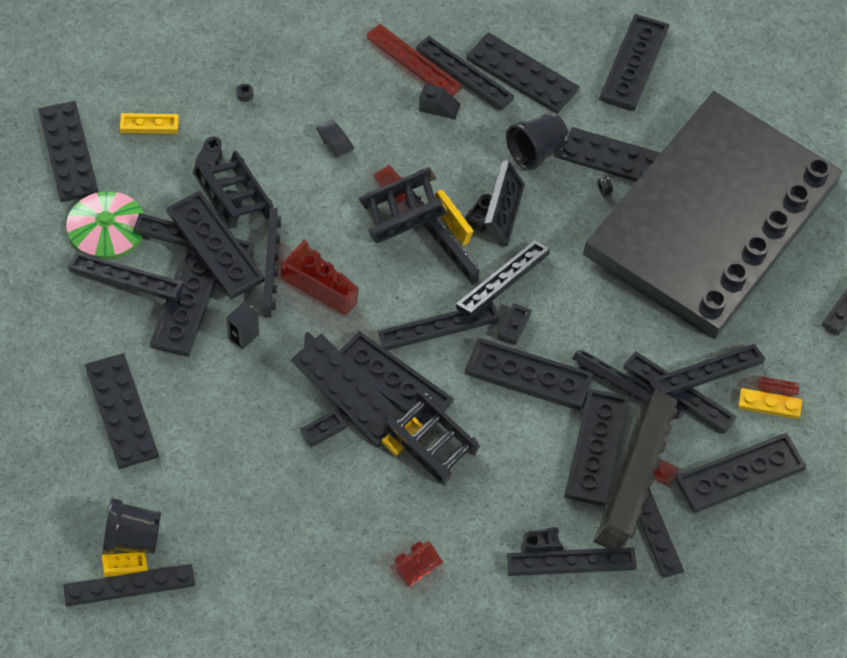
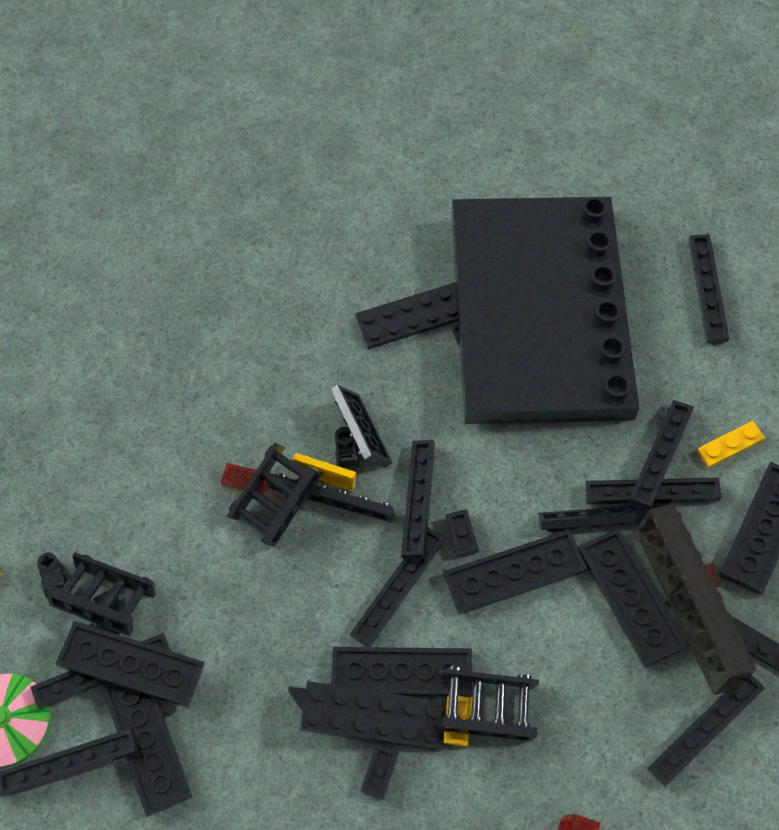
camera: 30 degrees left, 5 degrees up
(242, 325) = (223, 727): black brick -> none
(244, 97) = (35, 480): black bush -> none
(271, 270) = (201, 646): black plate -> none
(319, 279) = (254, 623): clear red wedge -> none
(335, 137) = (156, 471): black slope -> none
(412, 59) = (168, 349): clear red plate -> none
(438, 102) = (222, 372): black slope -> none
(465, 73) = (222, 328): black plate -> none
(523, 72) = (270, 293): black plate -> none
(536, 140) = (339, 348): black piece -> none
(544, 540) = (669, 727): black piece -> none
(605, 185) = (428, 346): black bush -> none
(634, 62) = (358, 220): black plate -> none
(769, 385) = (718, 426): clear red plate -> none

